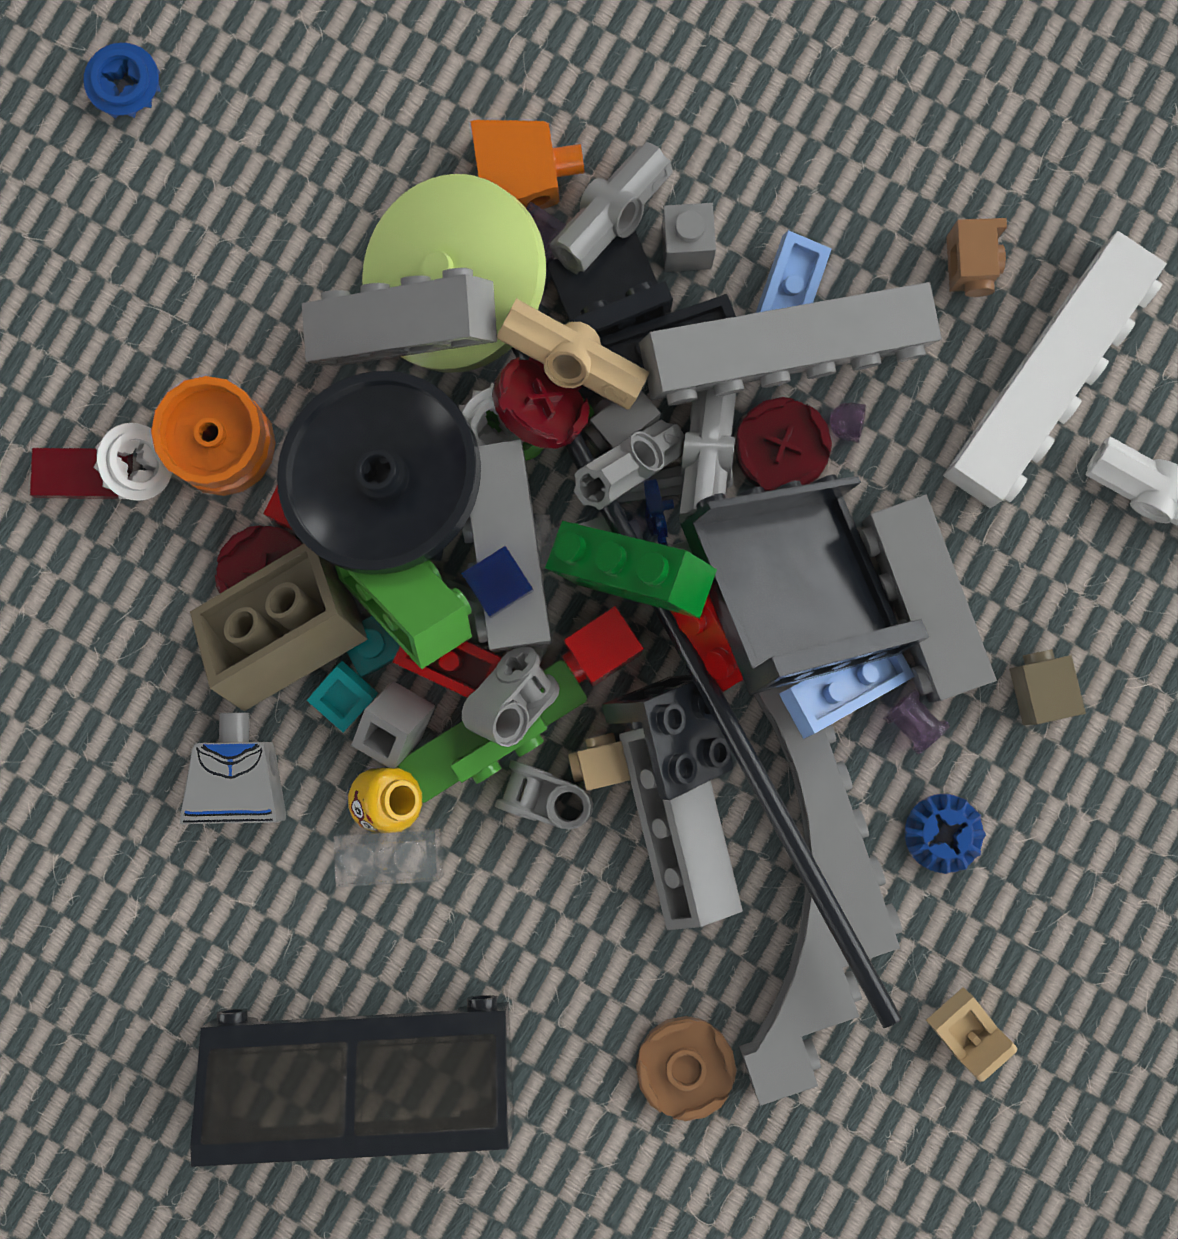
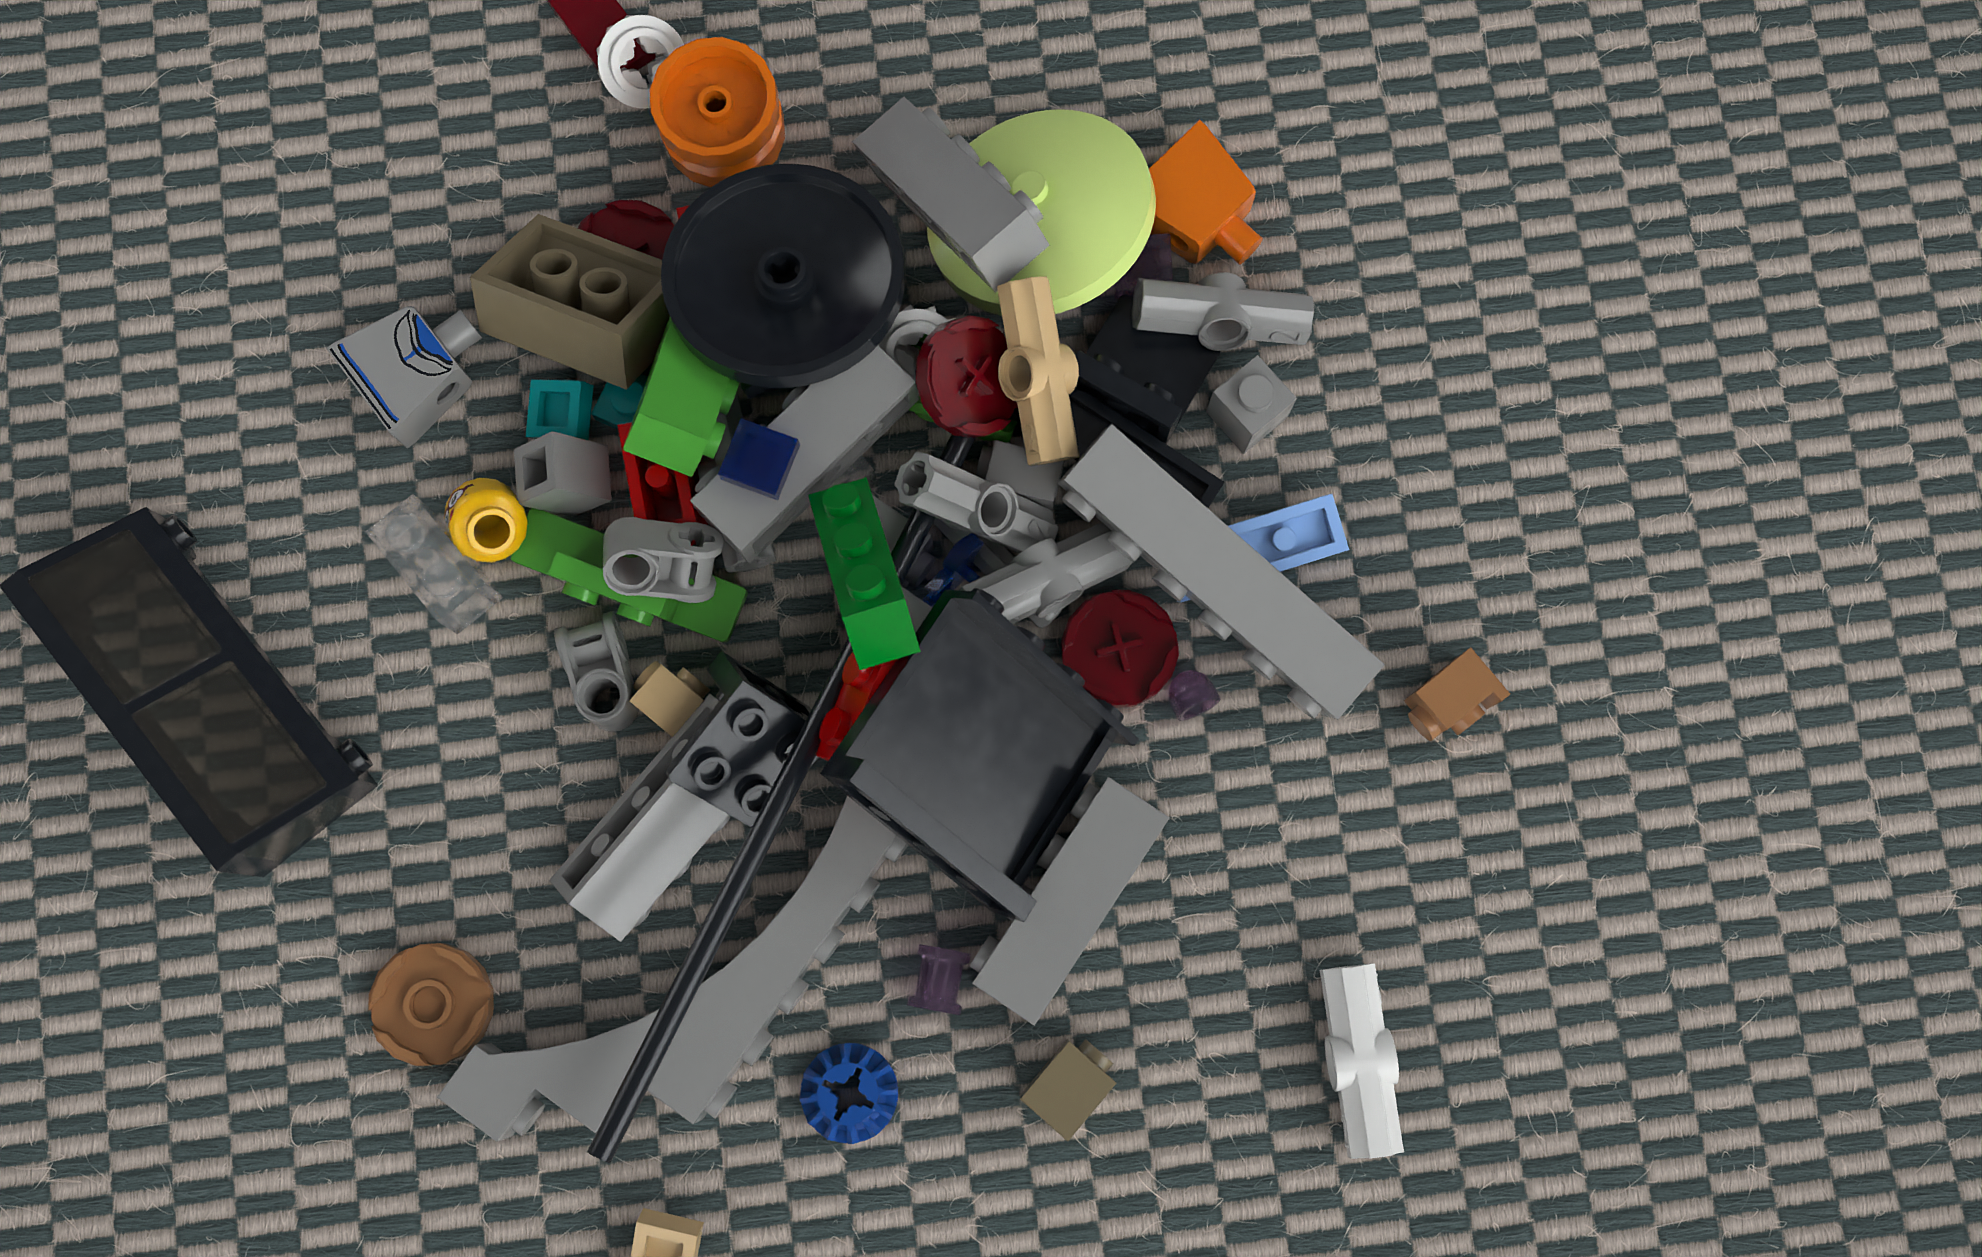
camera: 50 degrees right, 5 degrees down
(601, 648) = (778, 612): red brick -> none
(830, 697) = (893, 869): light blue plate -> none
(1055, 370) = (1401, 859): white brick -> none

